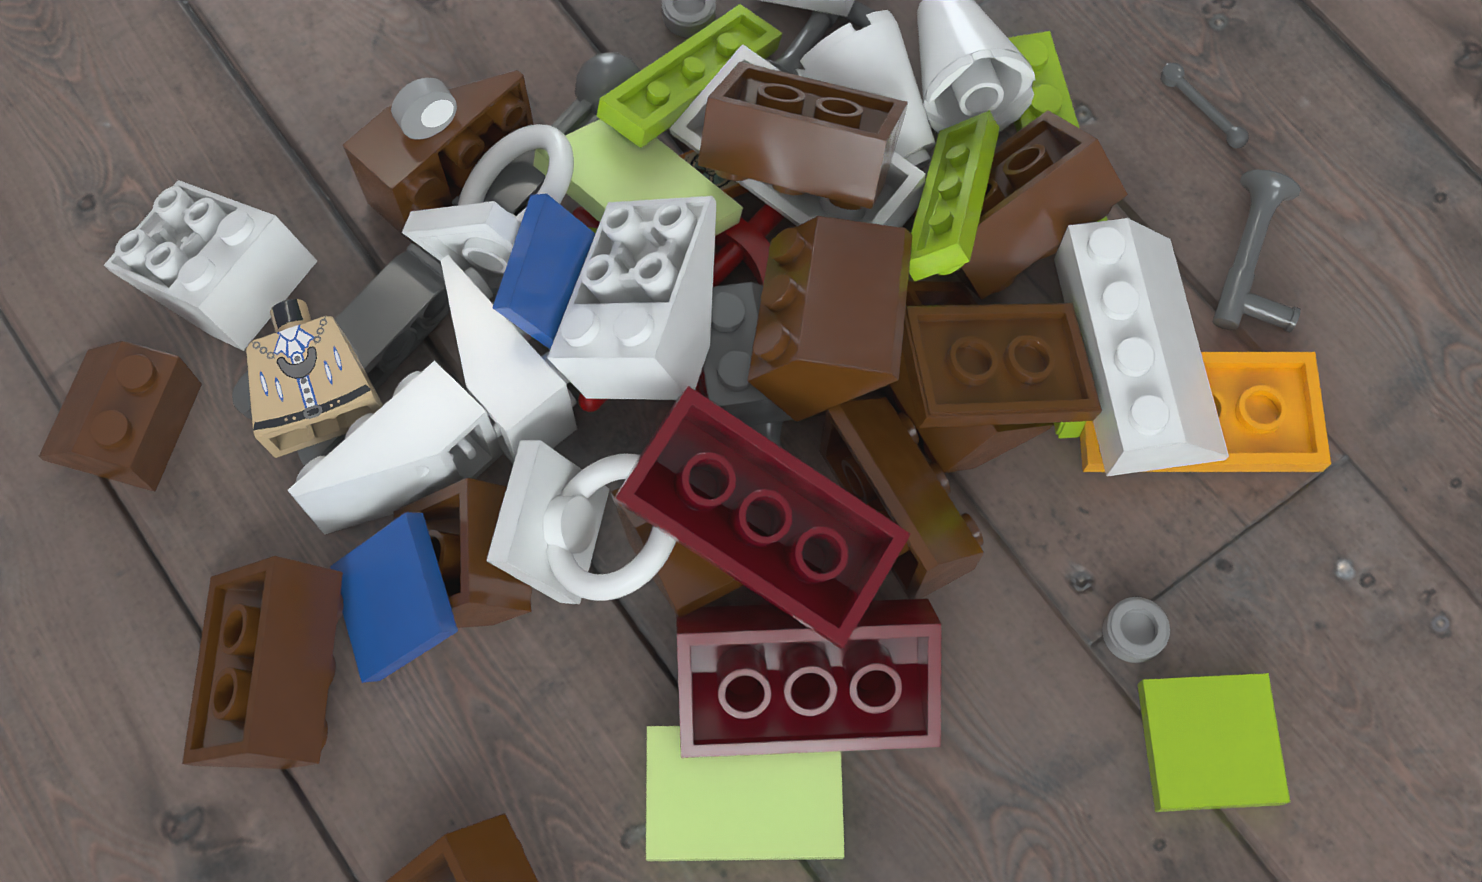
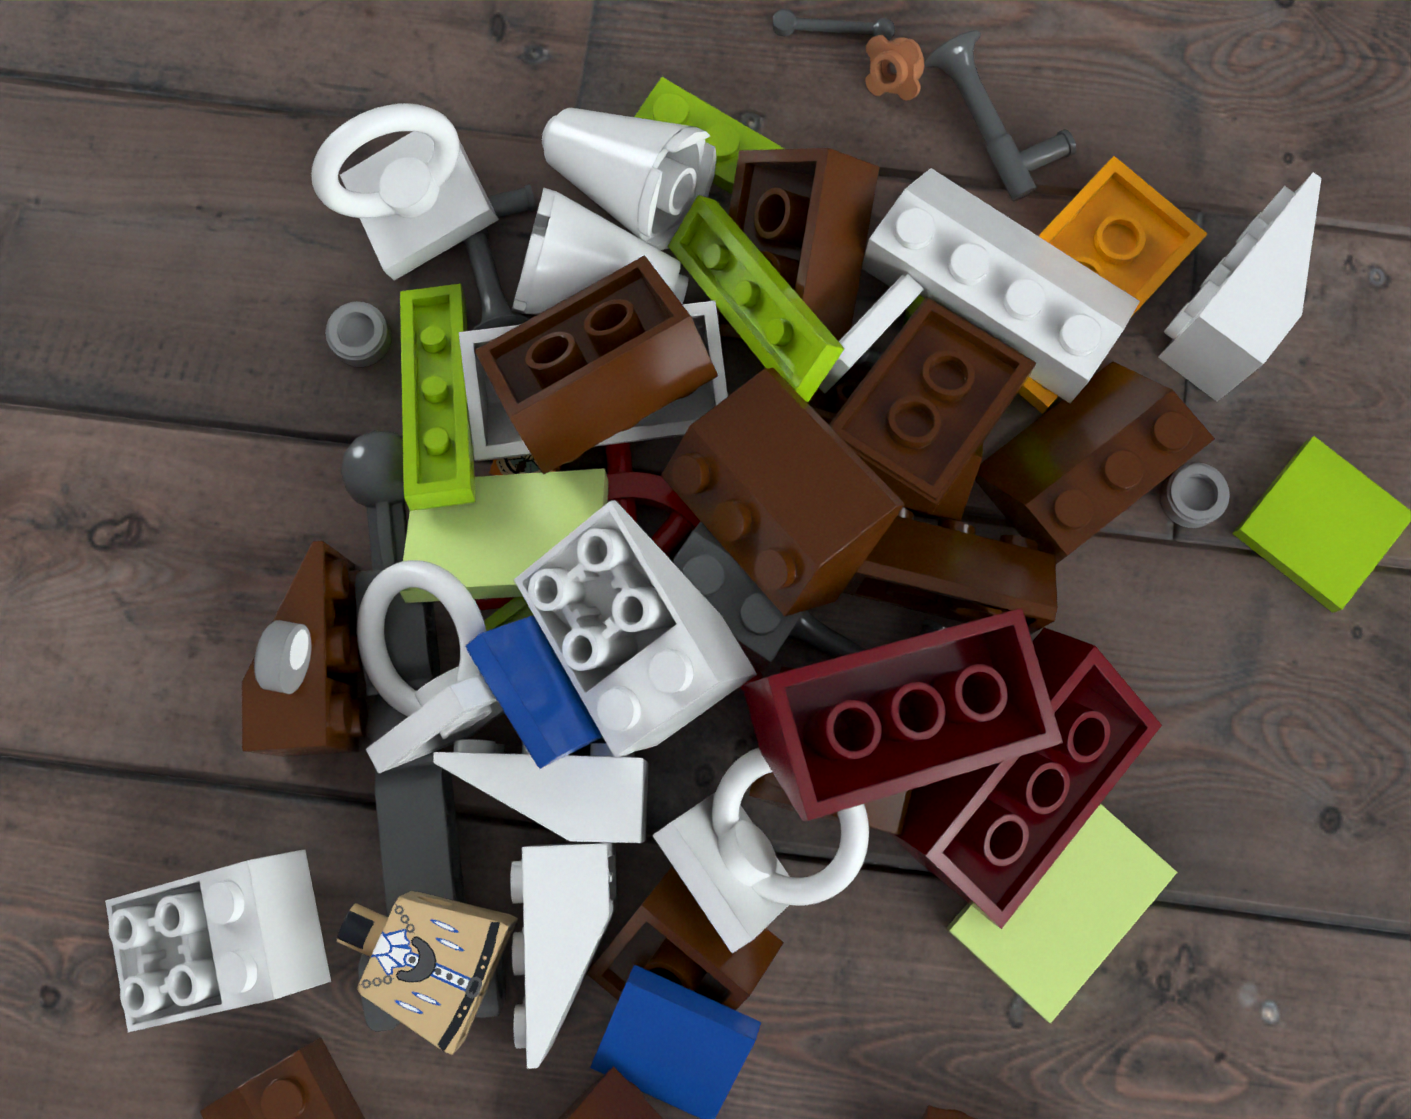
camera: 45 degrees left, 10 degrees up
(1004, 285) = (872, 326): none -> white tile
(1082, 533) = (1091, 458): none -> reddish brown slope
(1217, 161) = (907, 59): none -> nougat plate
(1289, 525) = (1247, 297): none -> white slope

